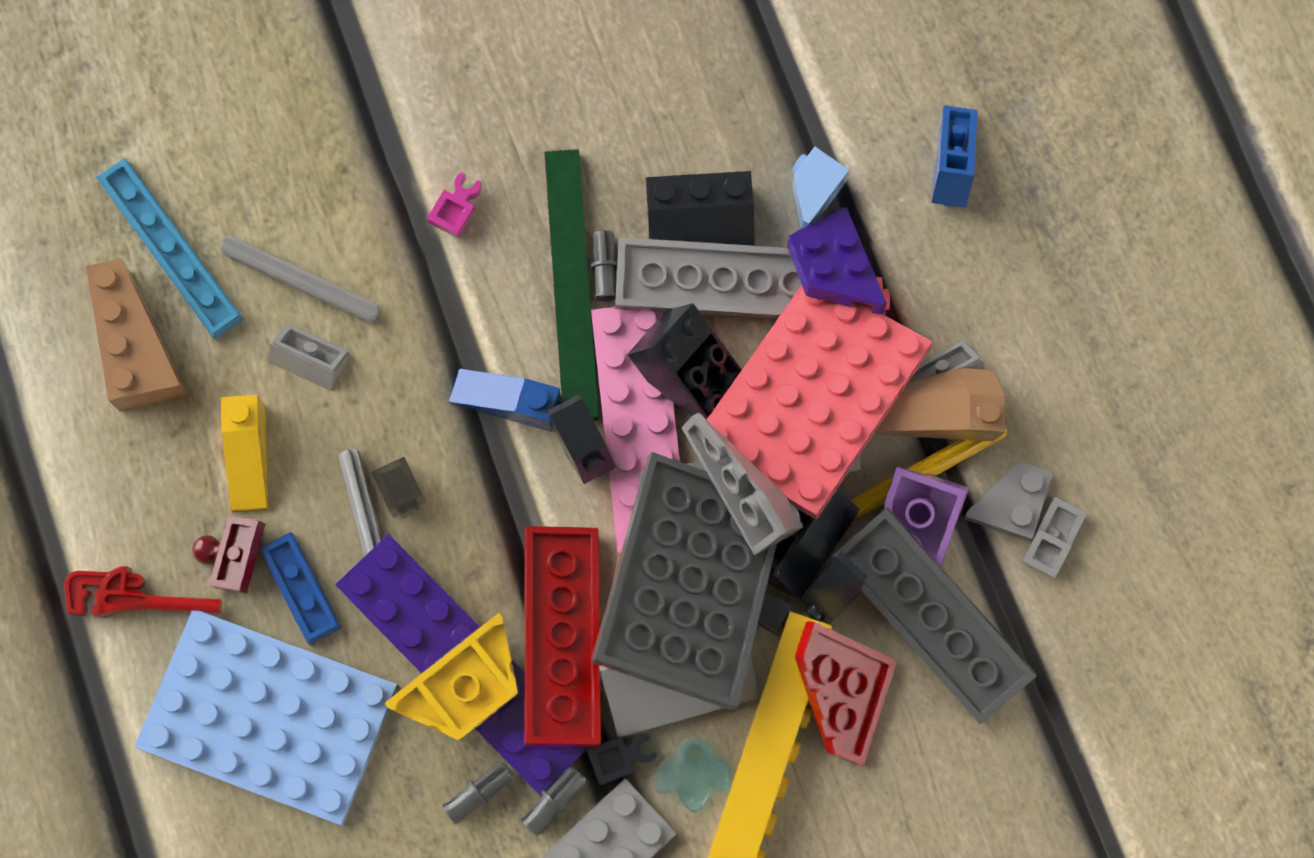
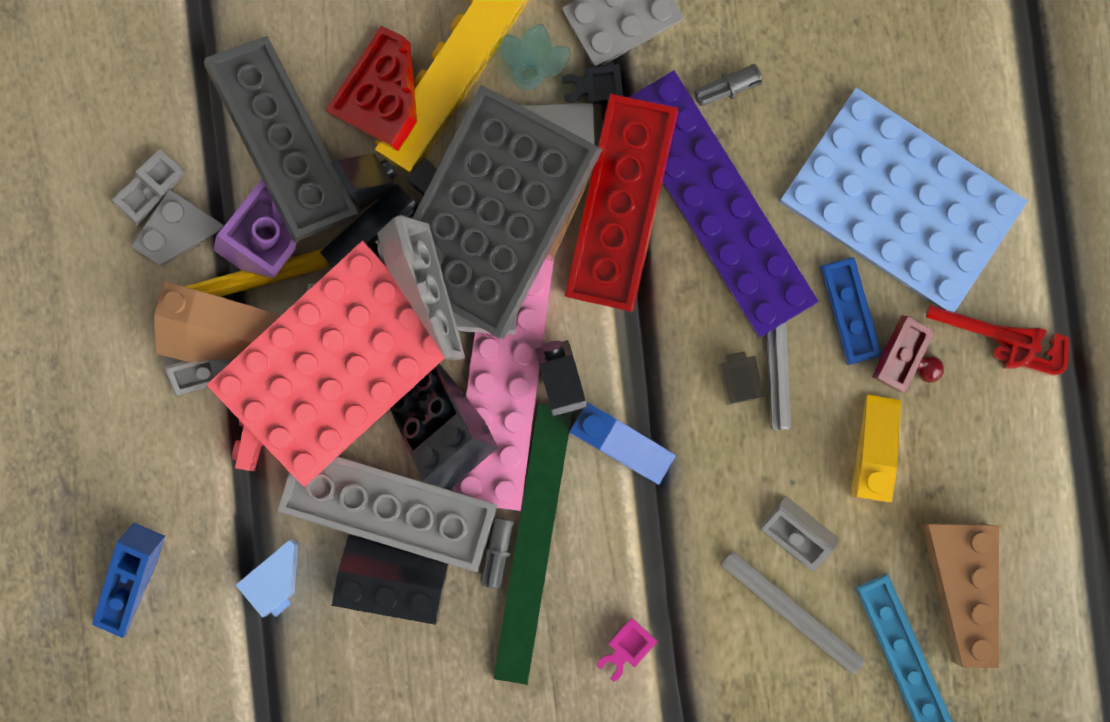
camera: 165 degrees left, 10 degrees up
(463, 684) = (721, 176): yellow wing -> none
(553, 800) = (664, 62): dark grey axle -> none
(835, 263) = (276, 491): dark purple wing -> none

